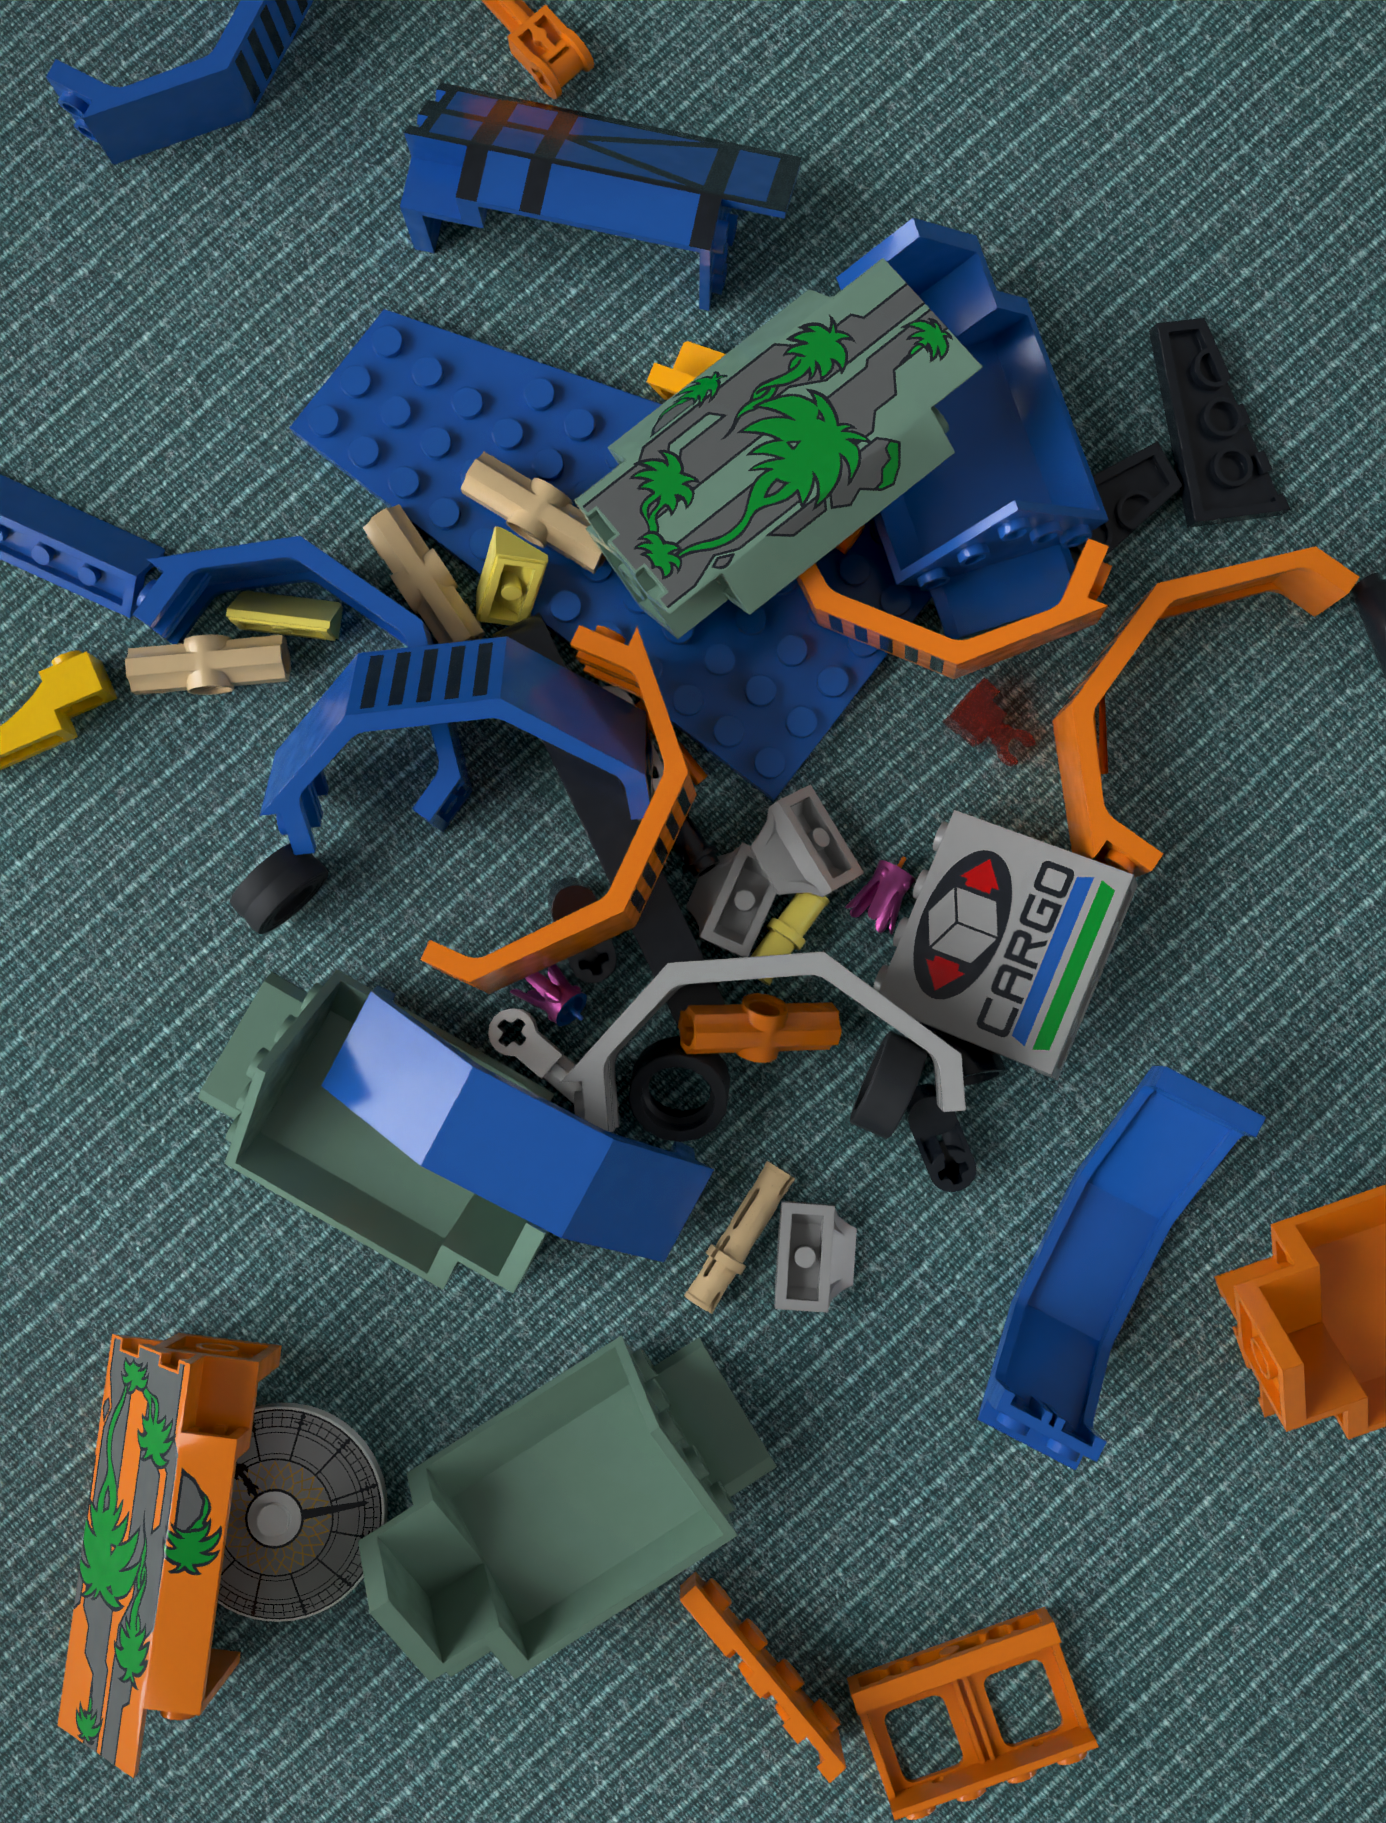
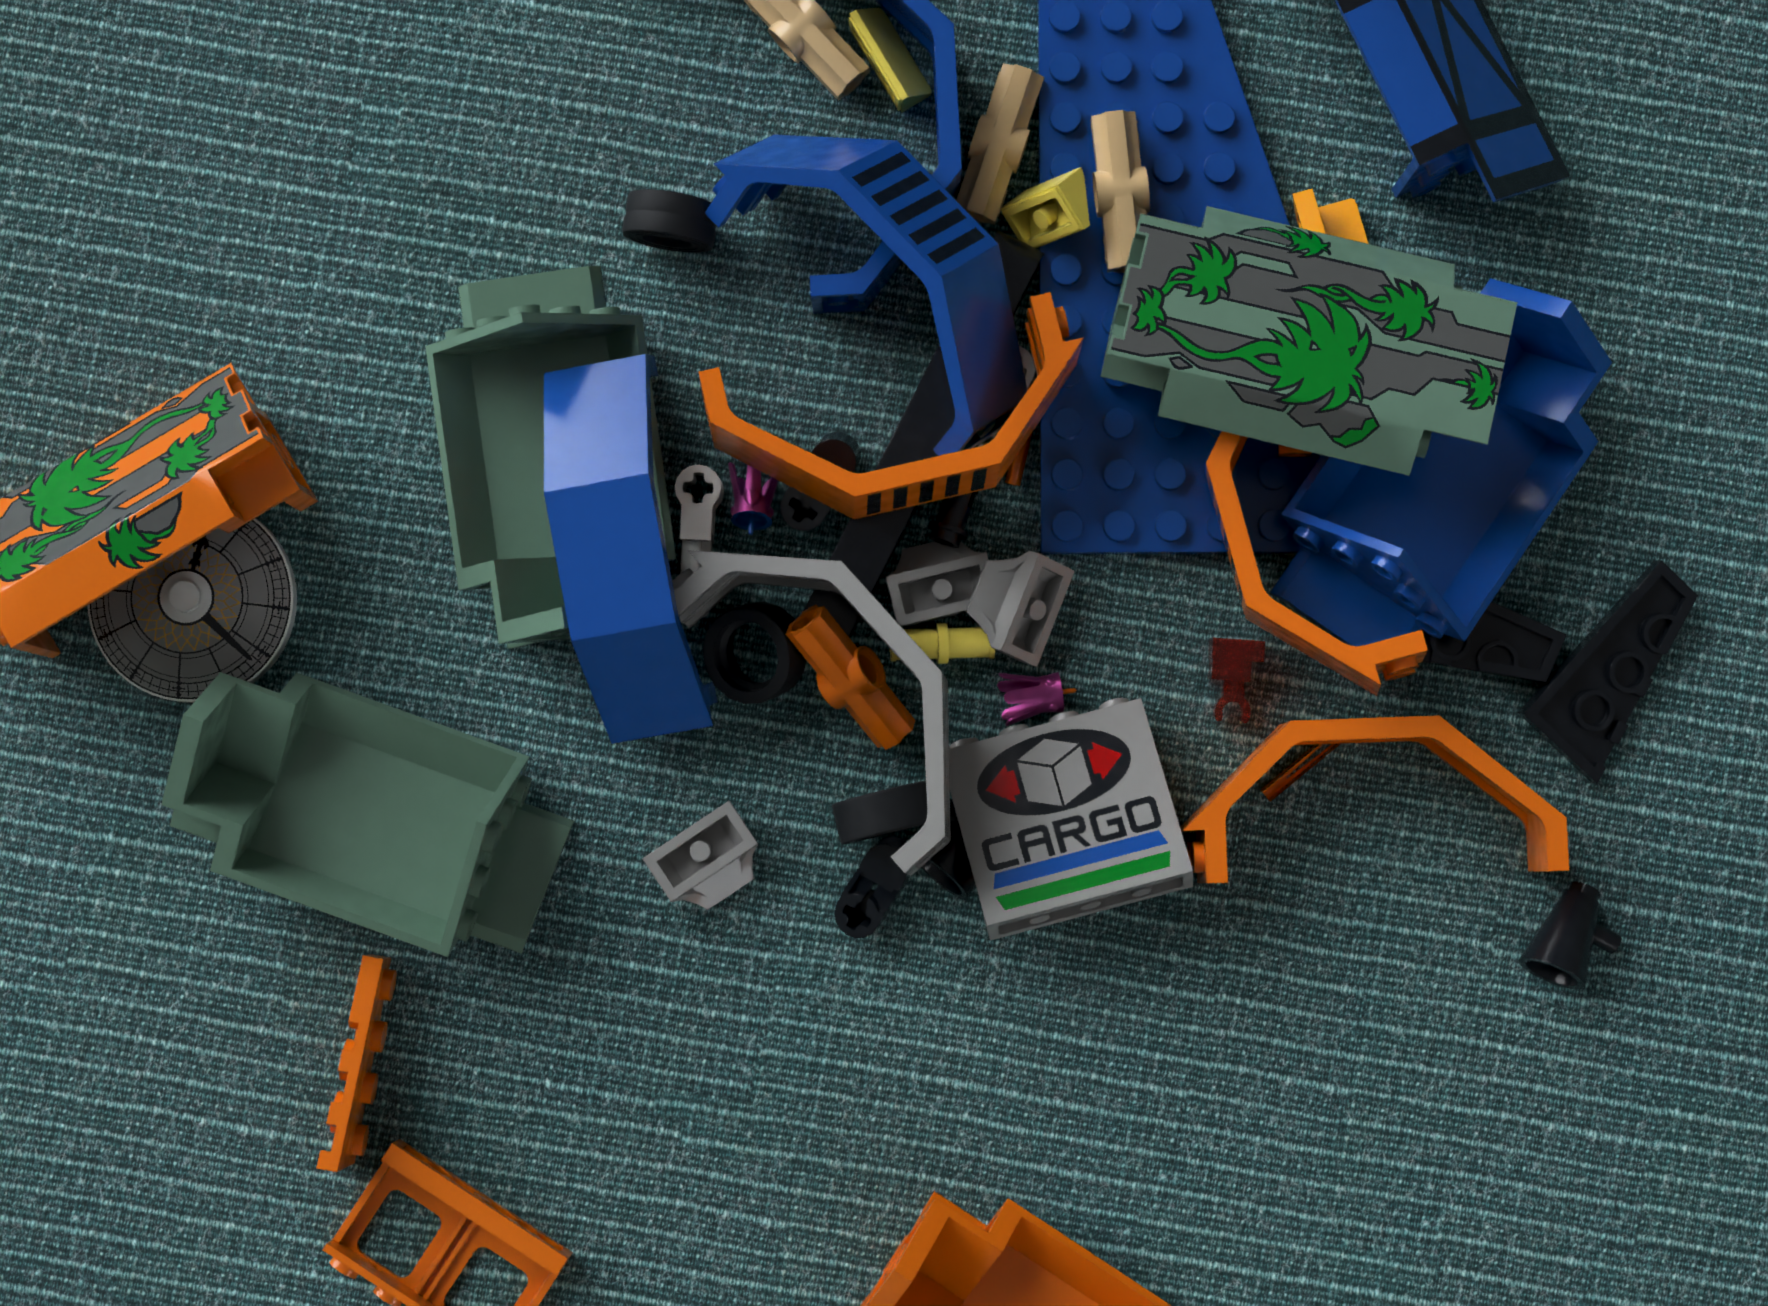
camera: 55 degrees right, 0 degrees up
(734, 1245) = (675, 790): tan pin -> none
(1098, 1258) = (876, 1084): blue panel -> none

